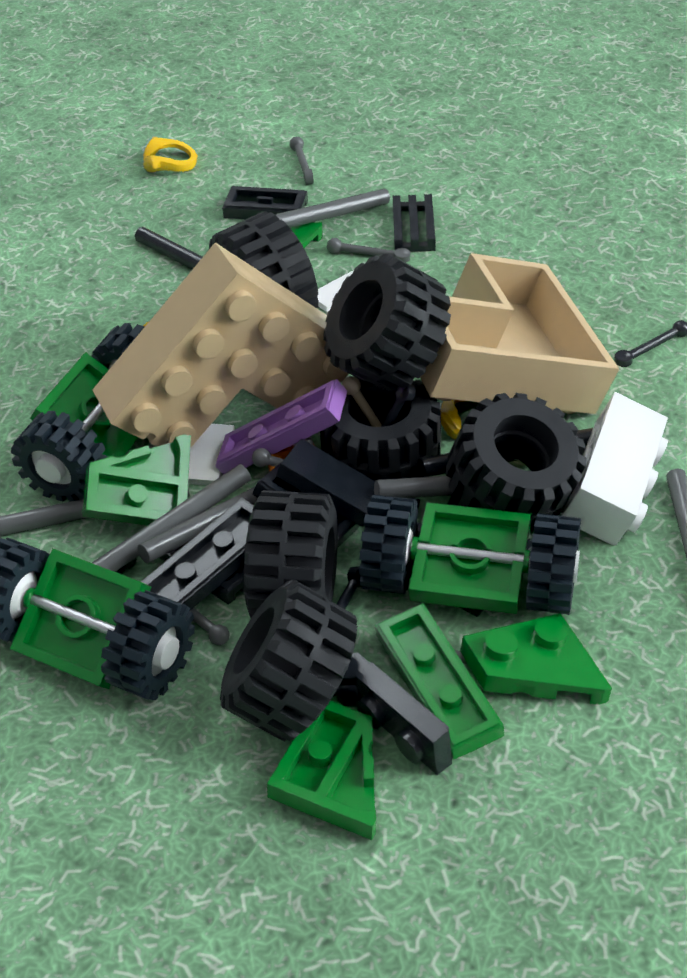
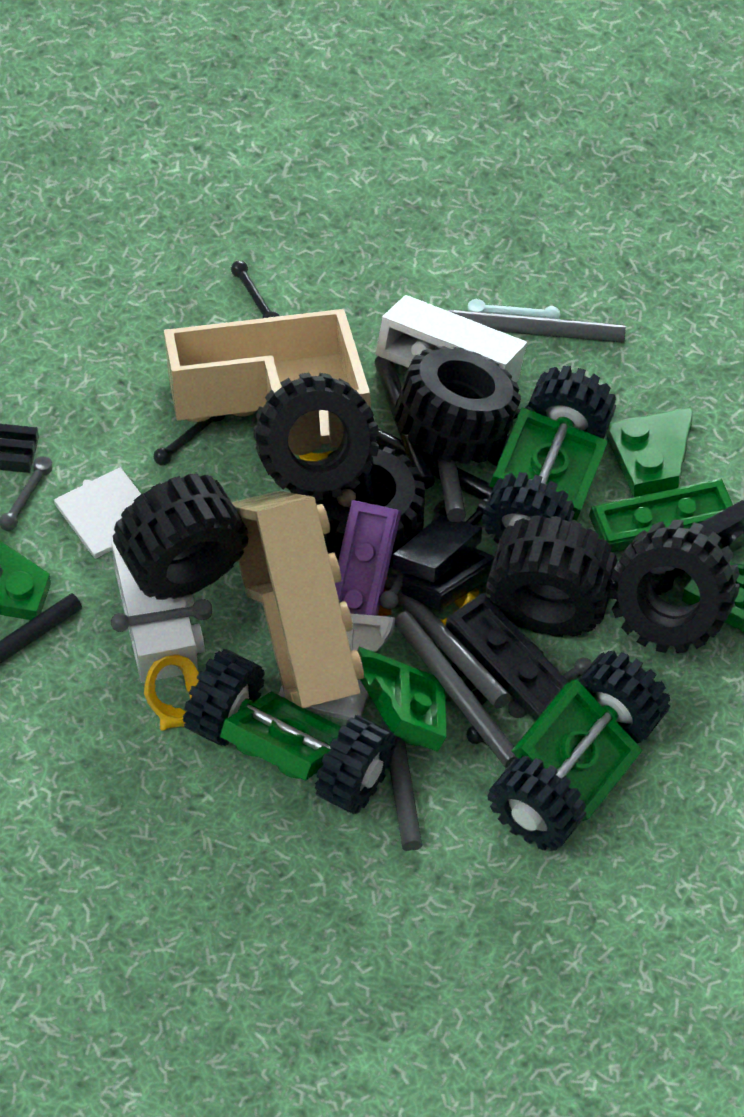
camera: 85 degrees left, 10 degrees up
(222, 449) = (369, 631): none -> white tile

